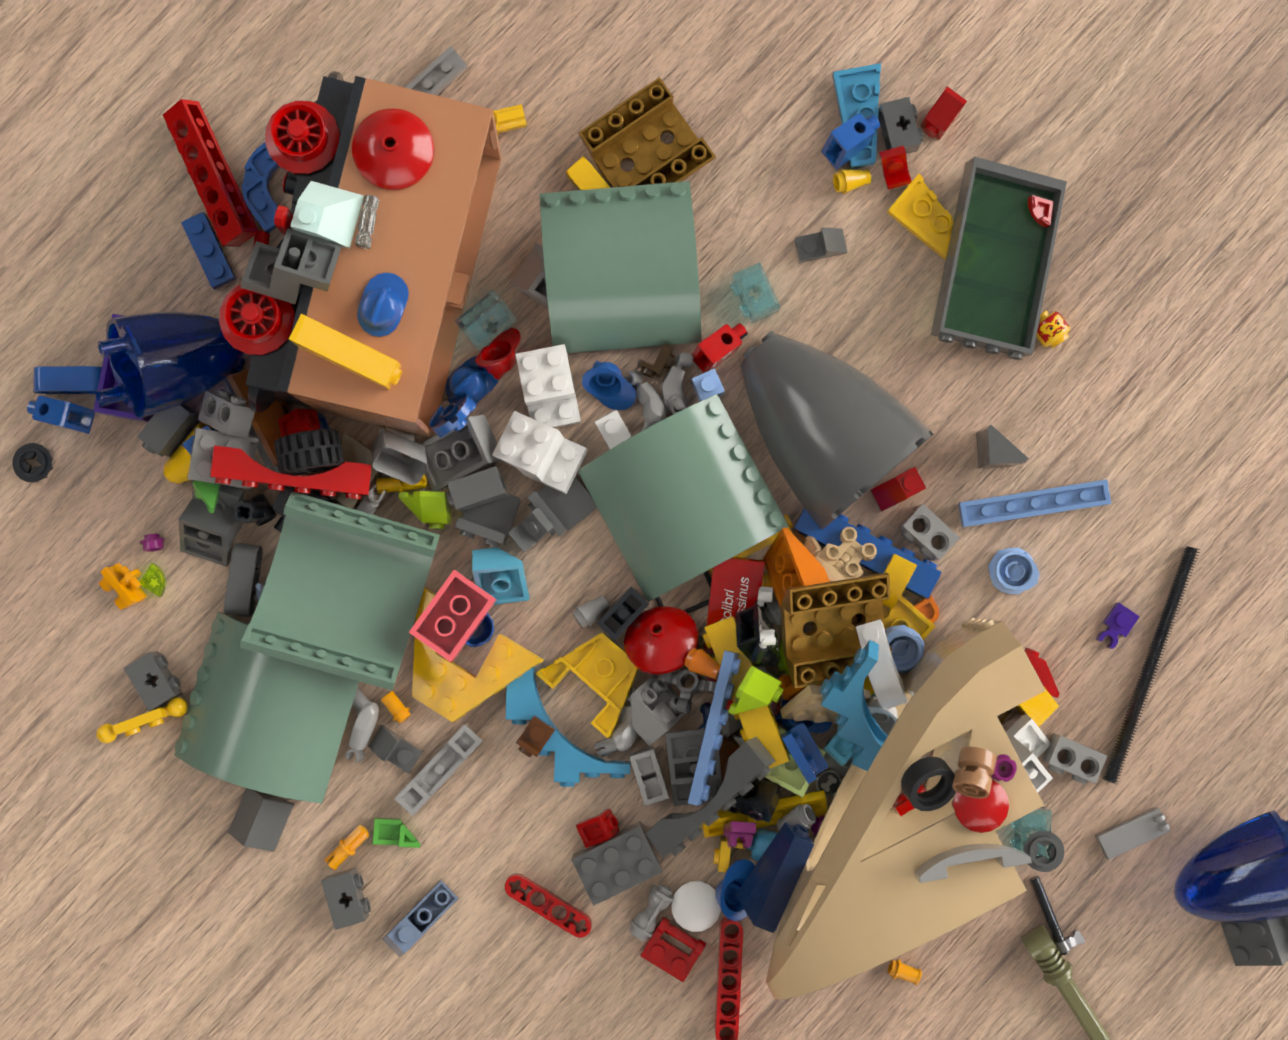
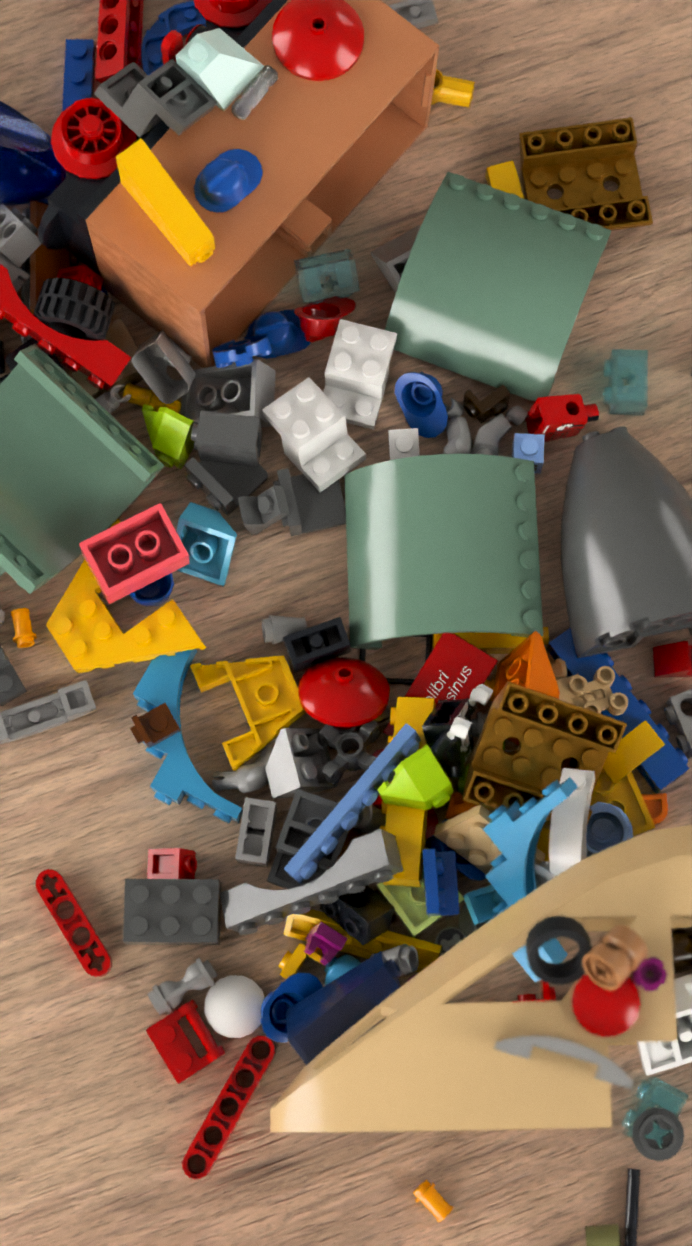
camera: 25 degrees right, 10 degrees down
(701, 663) = (373, 730): orange cone -> none

